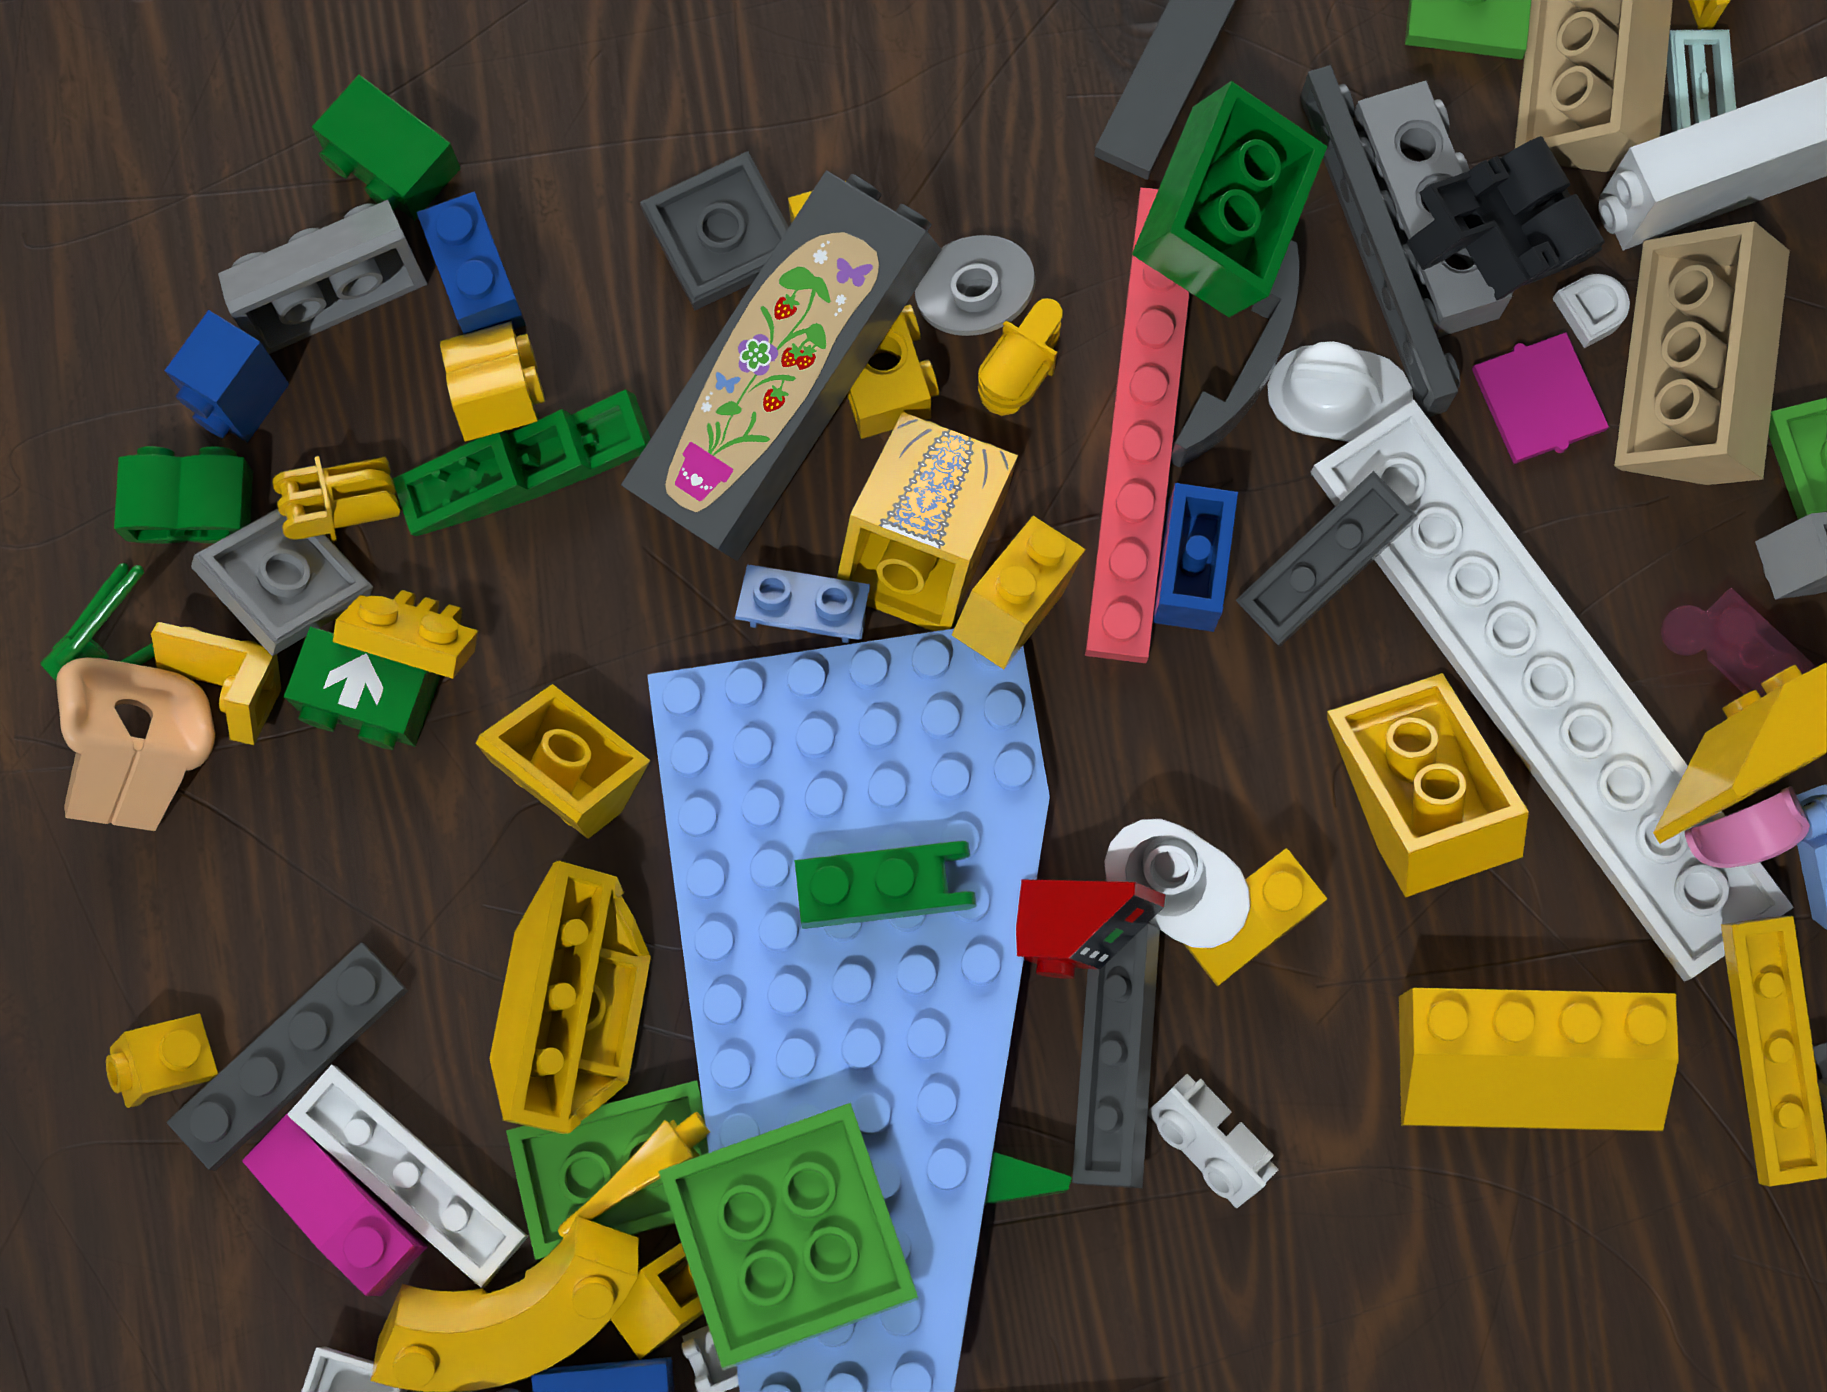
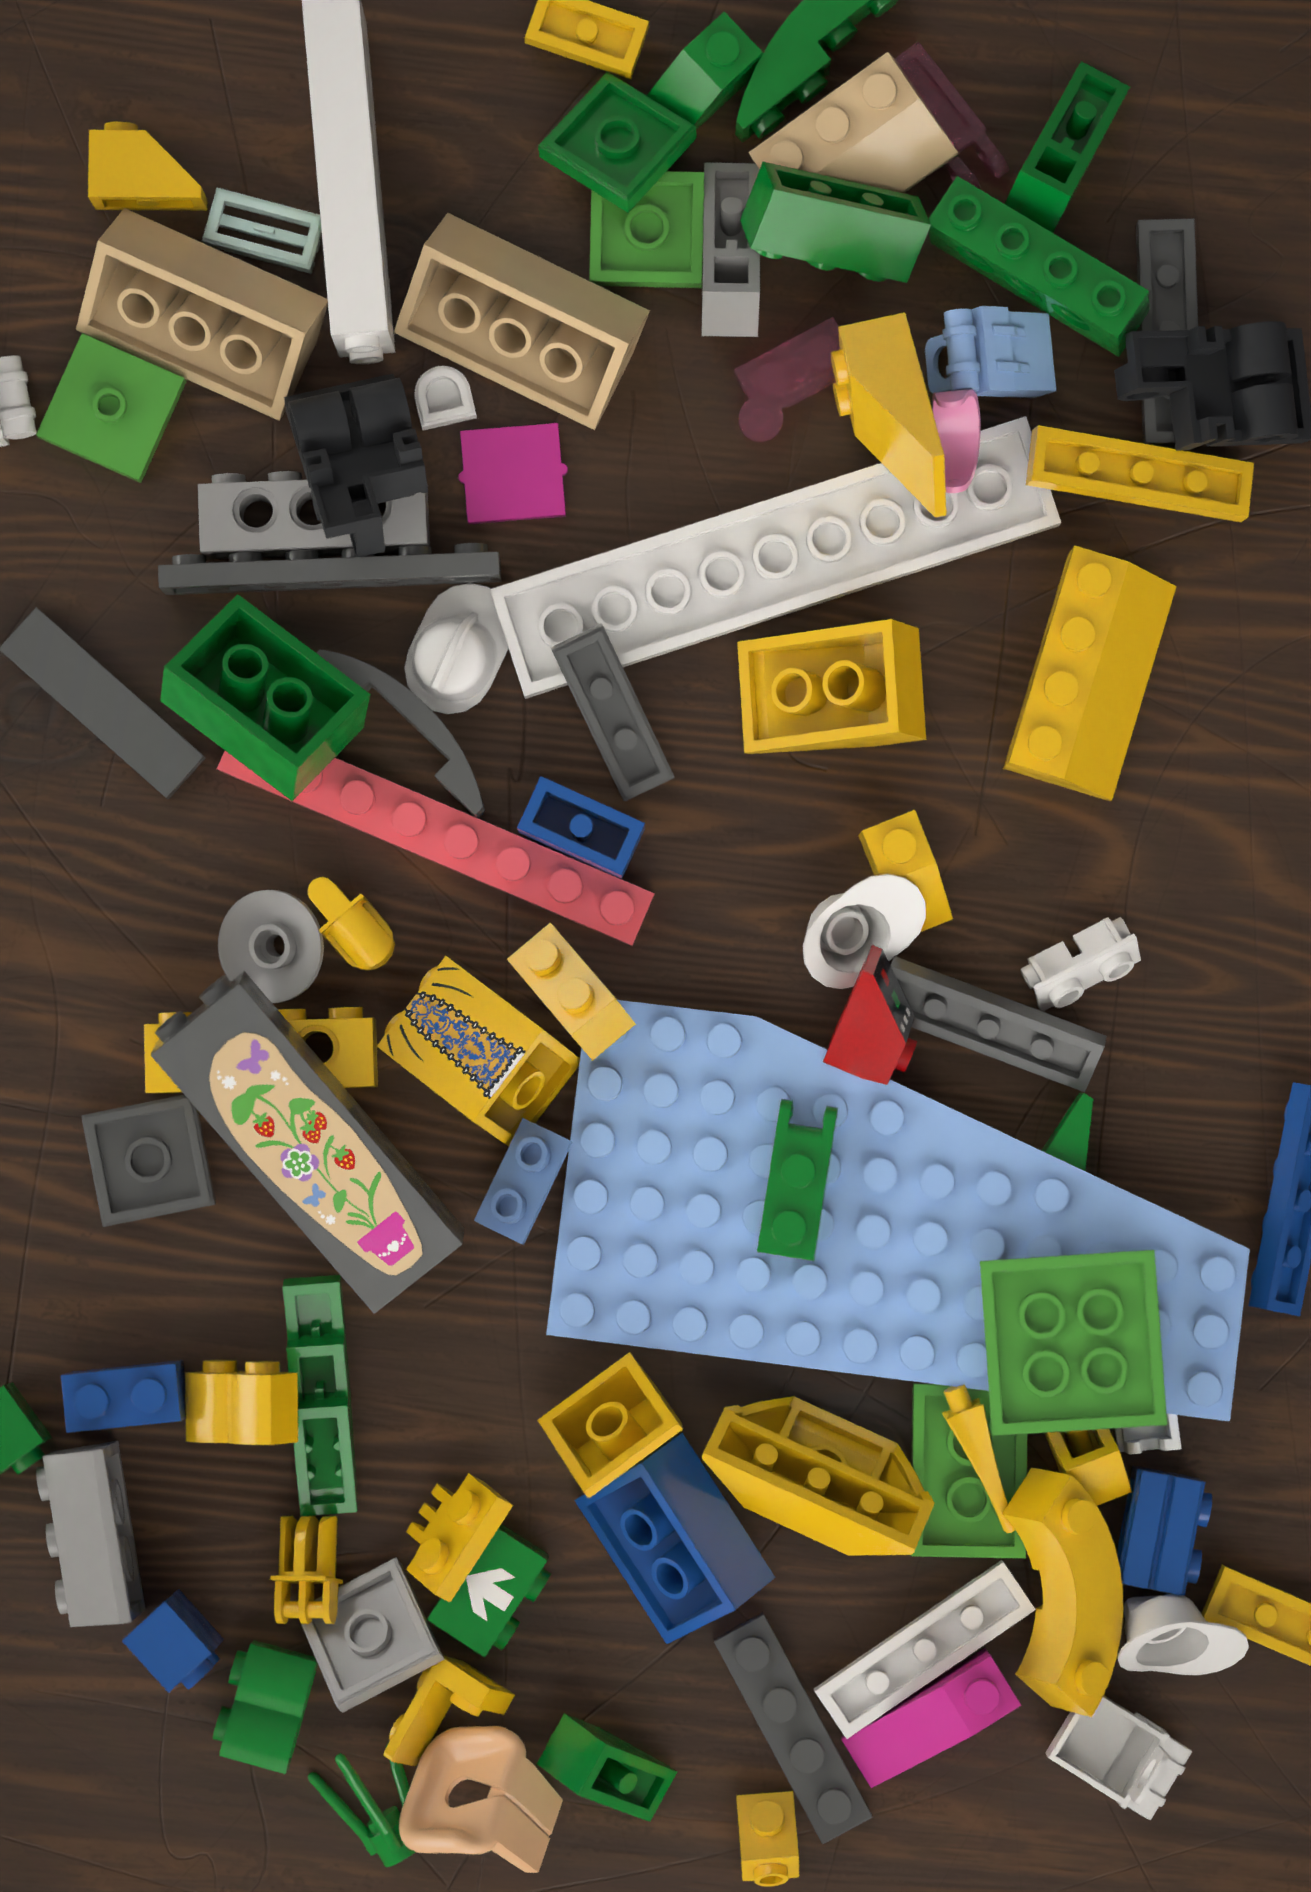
camera: 75 degrees left, 10 degrees up
(195, 863) = (606, 1768): none -> green slope
(463, 870) = (676, 1540): none -> blue slope

